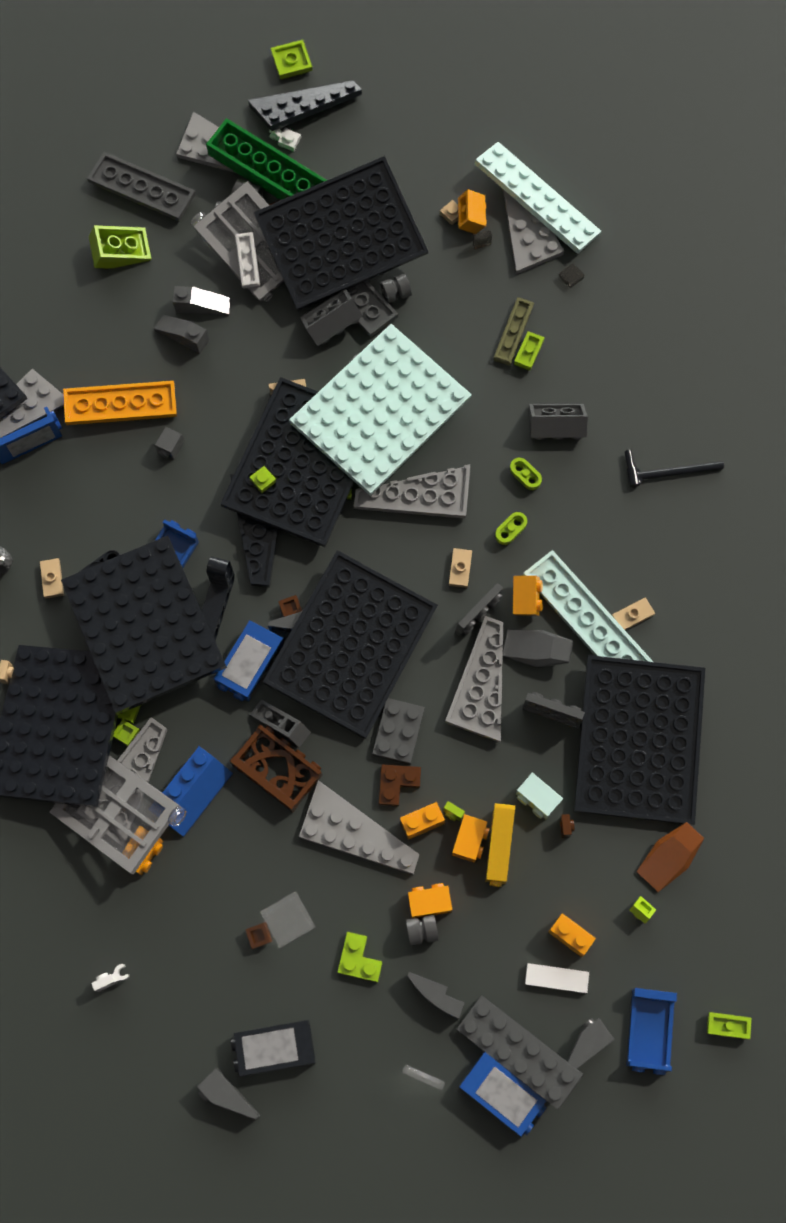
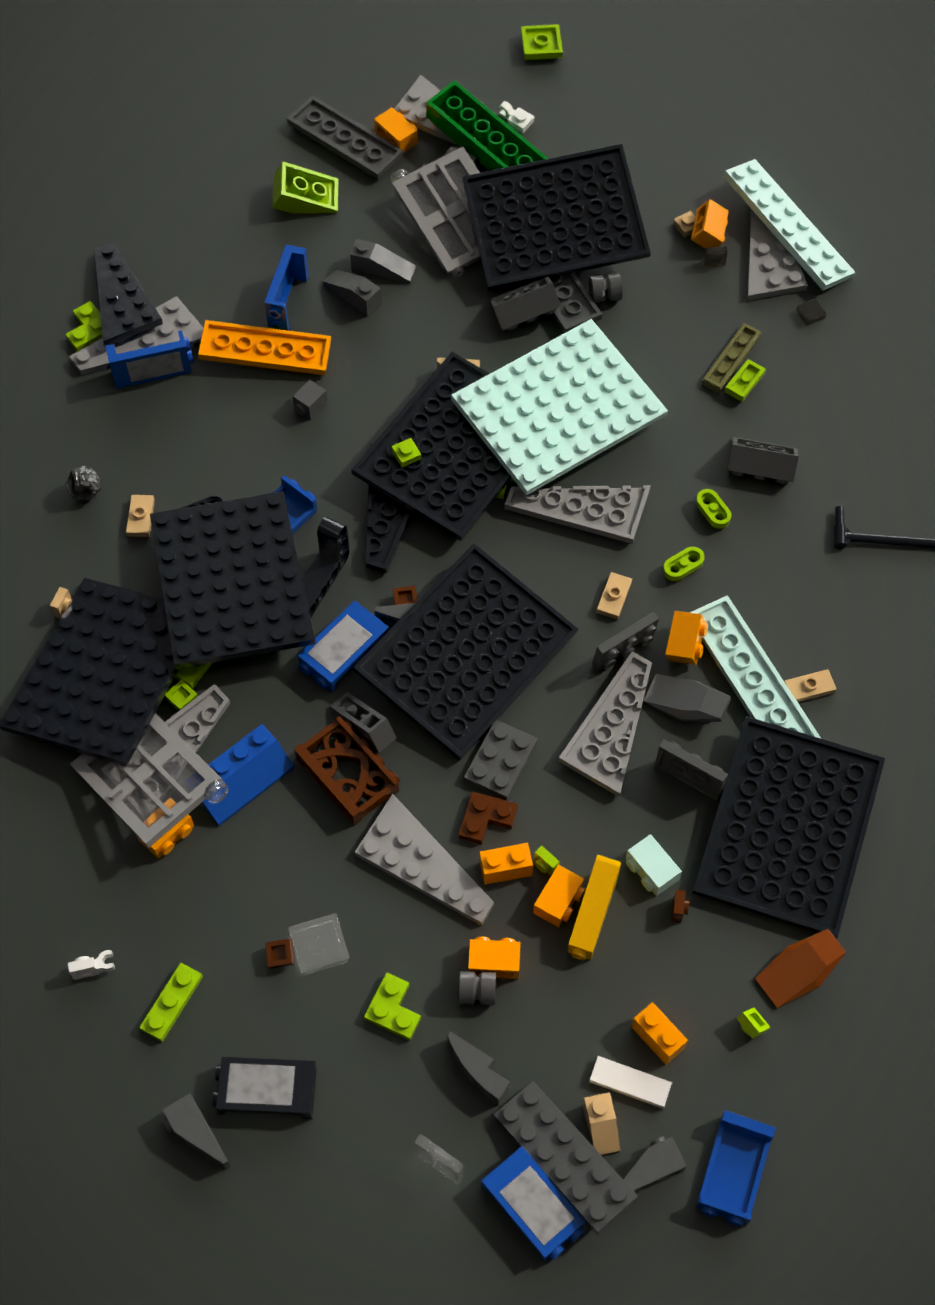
camera: 10 degrees right, 10 degrees down
(125, 321) = (291, 266): none -> blue panel
(181, 993) = (171, 1002): none -> lime plate
(184, 171) = (396, 129): none -> light orange brick
(247, 260) = (444, 227): white tile -> none
(290, 107) = (526, 88): wing -> none
(542, 1018) = (601, 1123): none -> tan slope
(729, 1025) = (834, 1184): lime plate -> none

